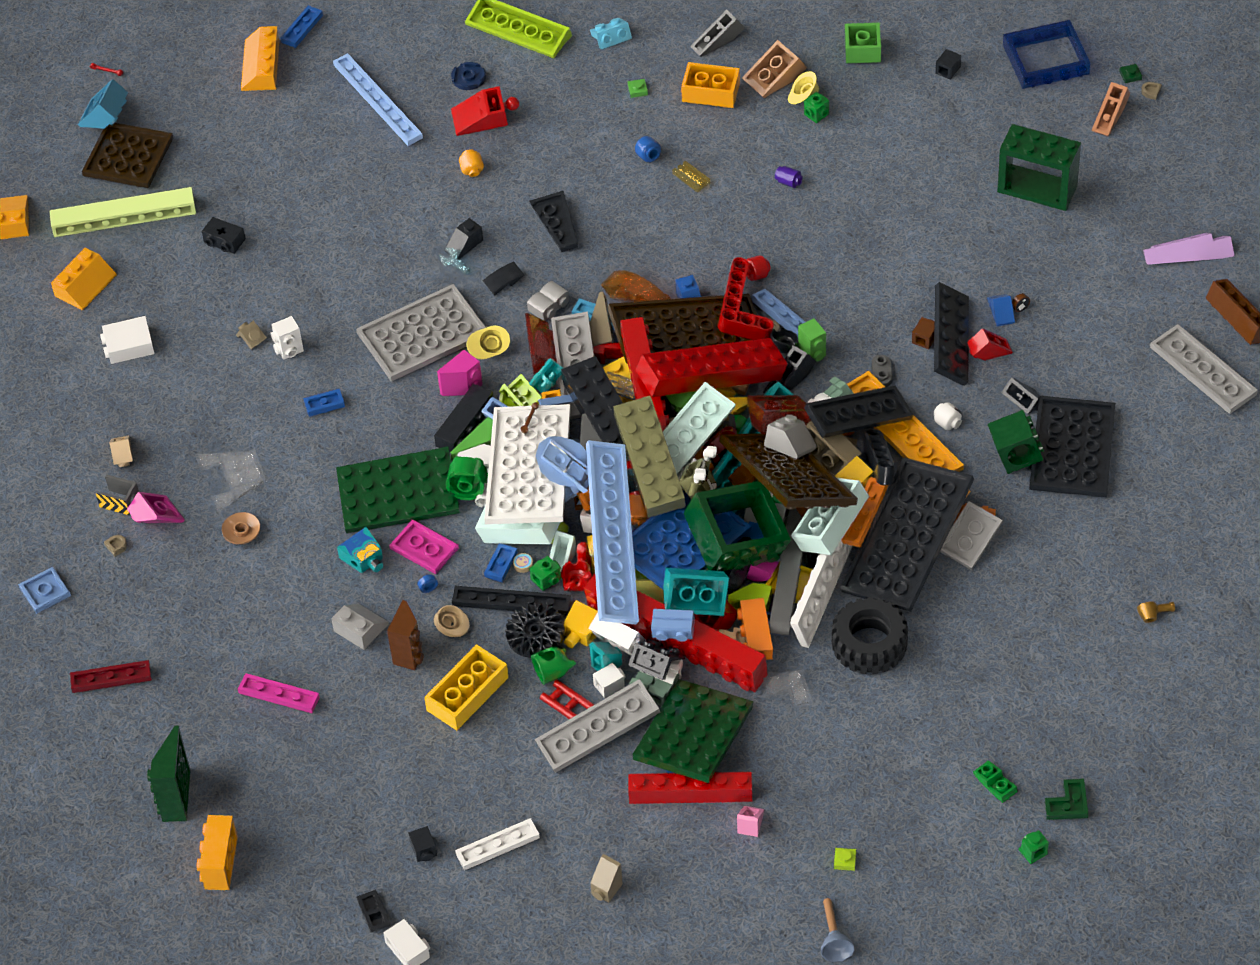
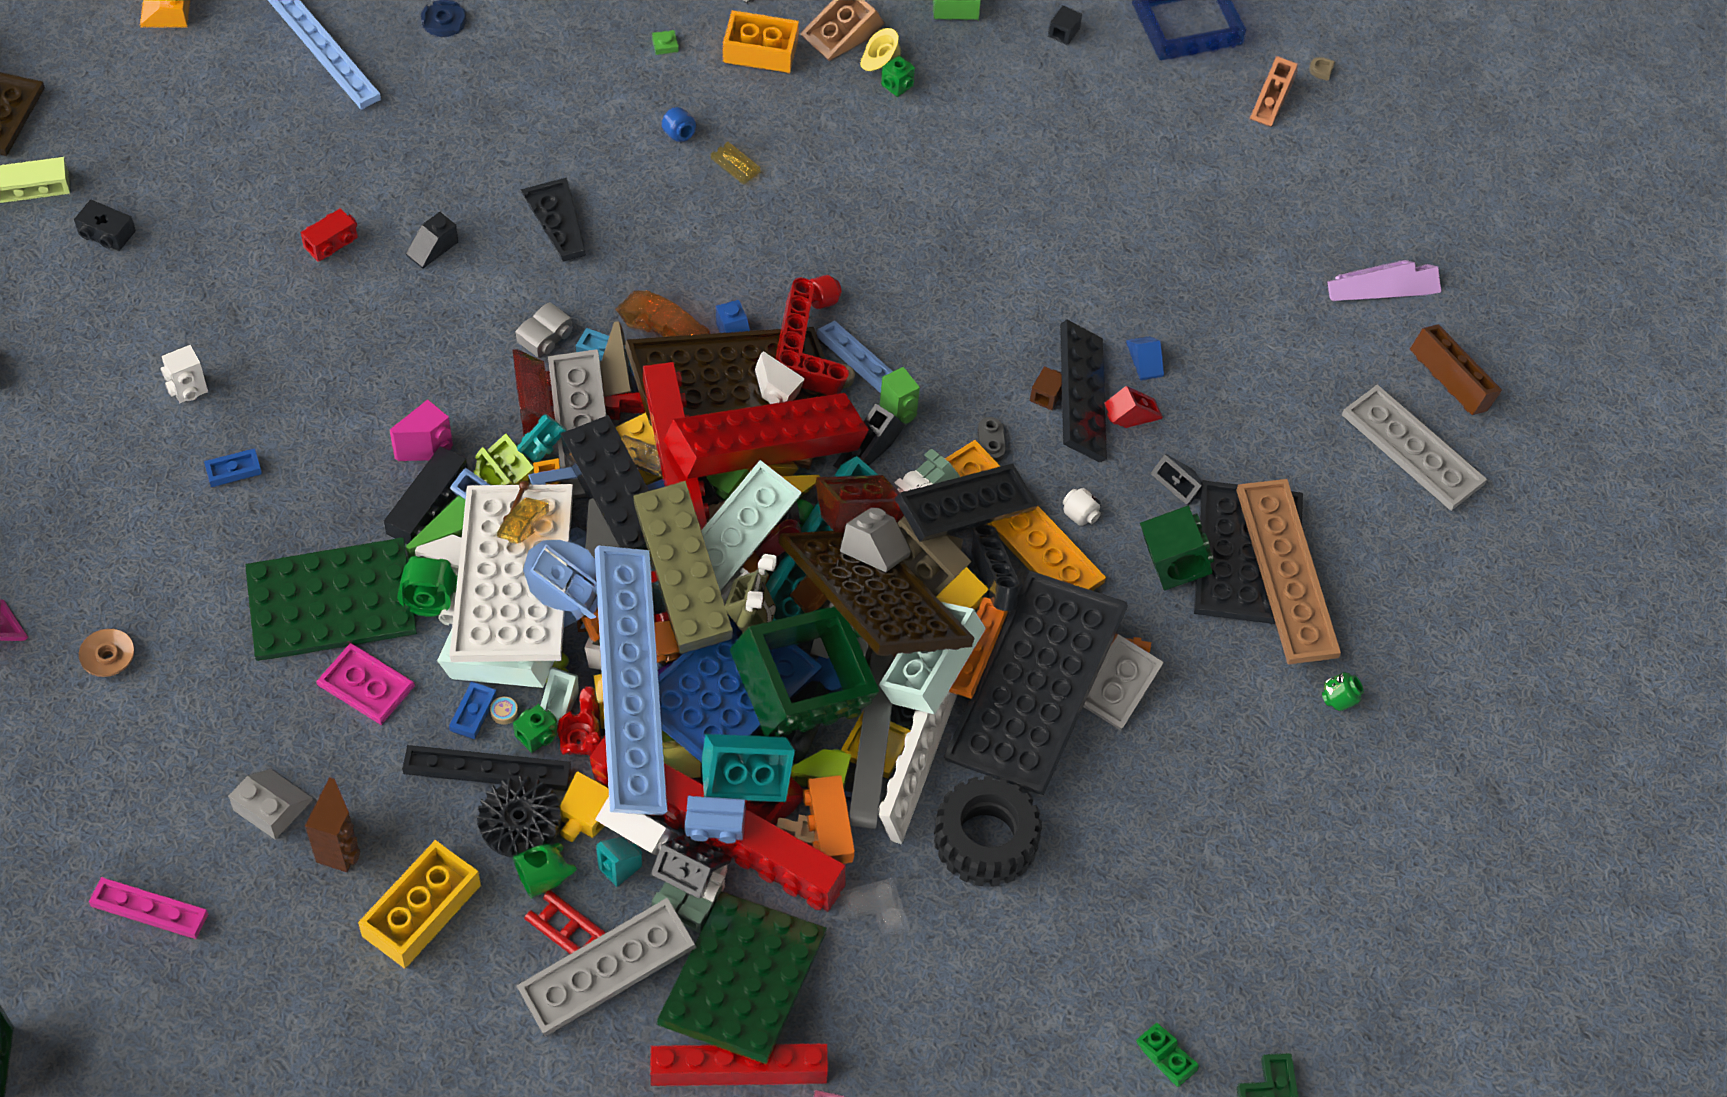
camera: 10 degrees left, 5 degrees up
(241, 472) = (112, 567): clear wing -> none
(251, 334) = (136, 366): dark tan bracket -> none
(361, 552) = (277, 691): torso -> none
(388, 237) = (329, 234): none -> red brick
(420, 332) = (372, 370): light grey plate -> none
(427, 583) = (368, 740): blue tile -> none
(450, 614) = (390, 796): tan hat -> none
(453, 260) = (416, 268): clear light blue bar -> none
(471, 163) = (444, 135): light orange head -> none
(482, 111) = (461, 66): red slope -> none
(488, 342) = (461, 387): light yellow piece -> none
(502, 277) = (482, 295): black slope -> none
(533, 428) = (521, 520): none -> clear yellow slope
(609, 680) = (623, 893): white brick -> none
(720, 330) = (776, 380): none -> white slope
(762, 571) = (837, 732): dark pink brick -> none
(784, 340) = (862, 393): black hair -> none
(788, 176) = (863, 167): dark purple brick -> none
(1020, 302) = (1171, 348): tile -> none
(1043, 150) = (1197, 144): dark green window -> none
(1099, 457) = (1288, 572): none -> medium nougat plate
(1130, 73) = (1295, 45): dark green plate -> none
(1136, 539) = (1342, 691): none -> green head
(1149, 610) = (1365, 796): pearl gold bar -> none

